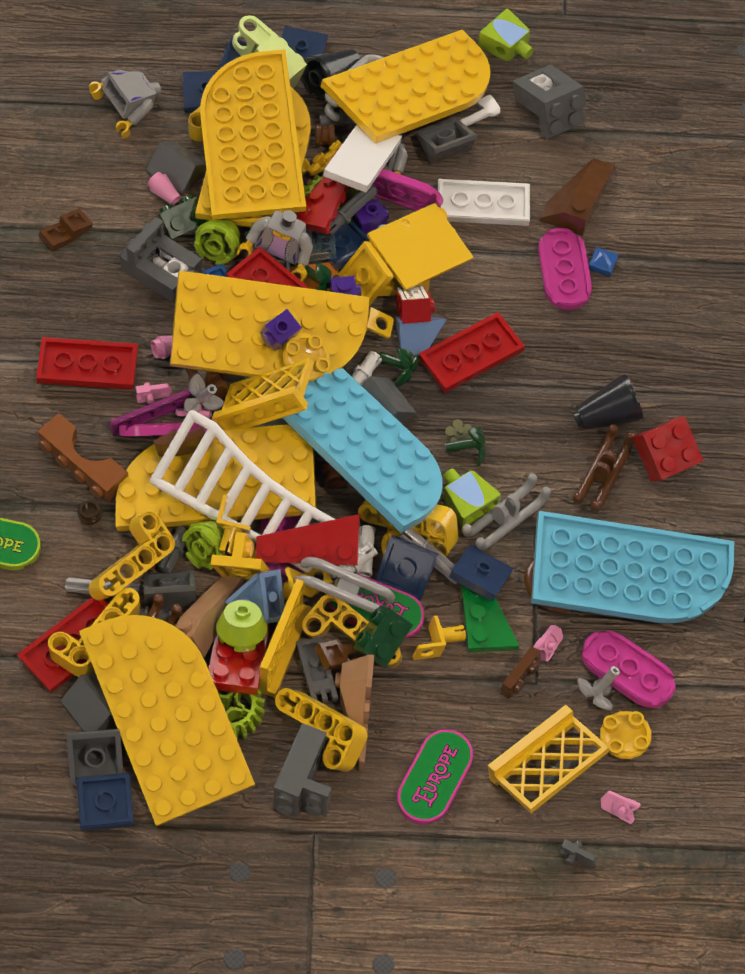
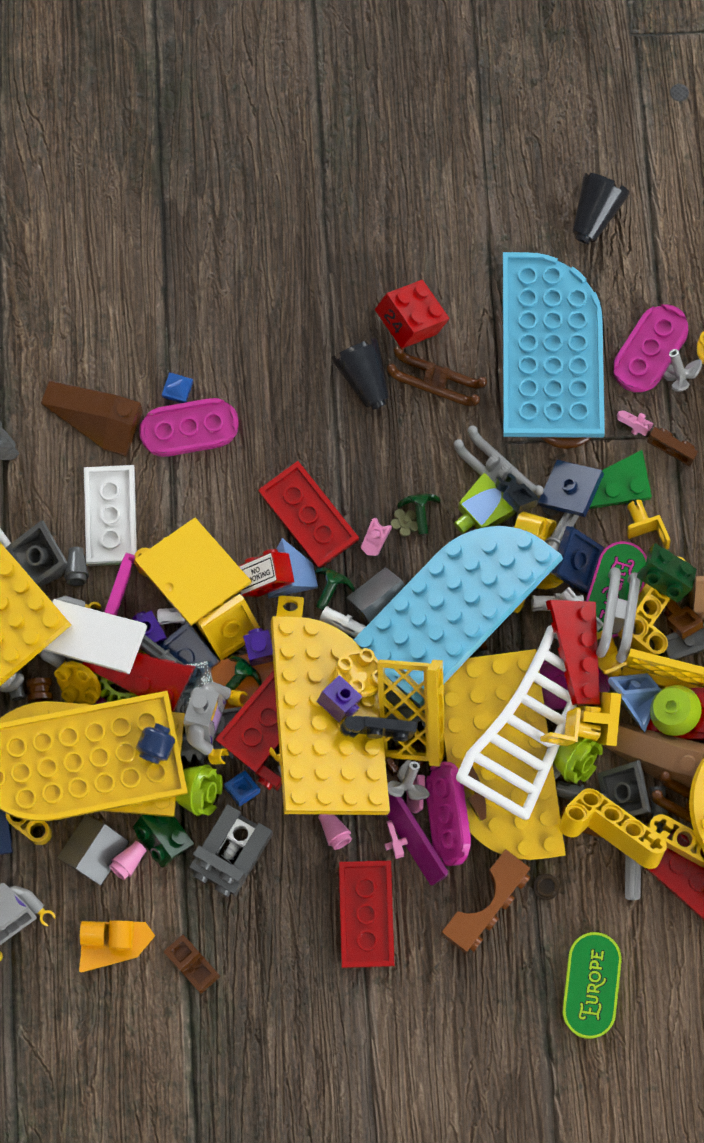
camera: 90 degrees left, 15 degrees up
(95, 174) = (112, 942): none -> light orange panel
(249, 357) = (378, 727): none -> black hinge
(256, 187) = (155, 743): none -> dark blue head
(435, 170) = (76, 569): none -> dark grey cone
(445, 404) = (375, 537): none -> bright pink piece
(474, 515) = (516, 495): none -> black plate

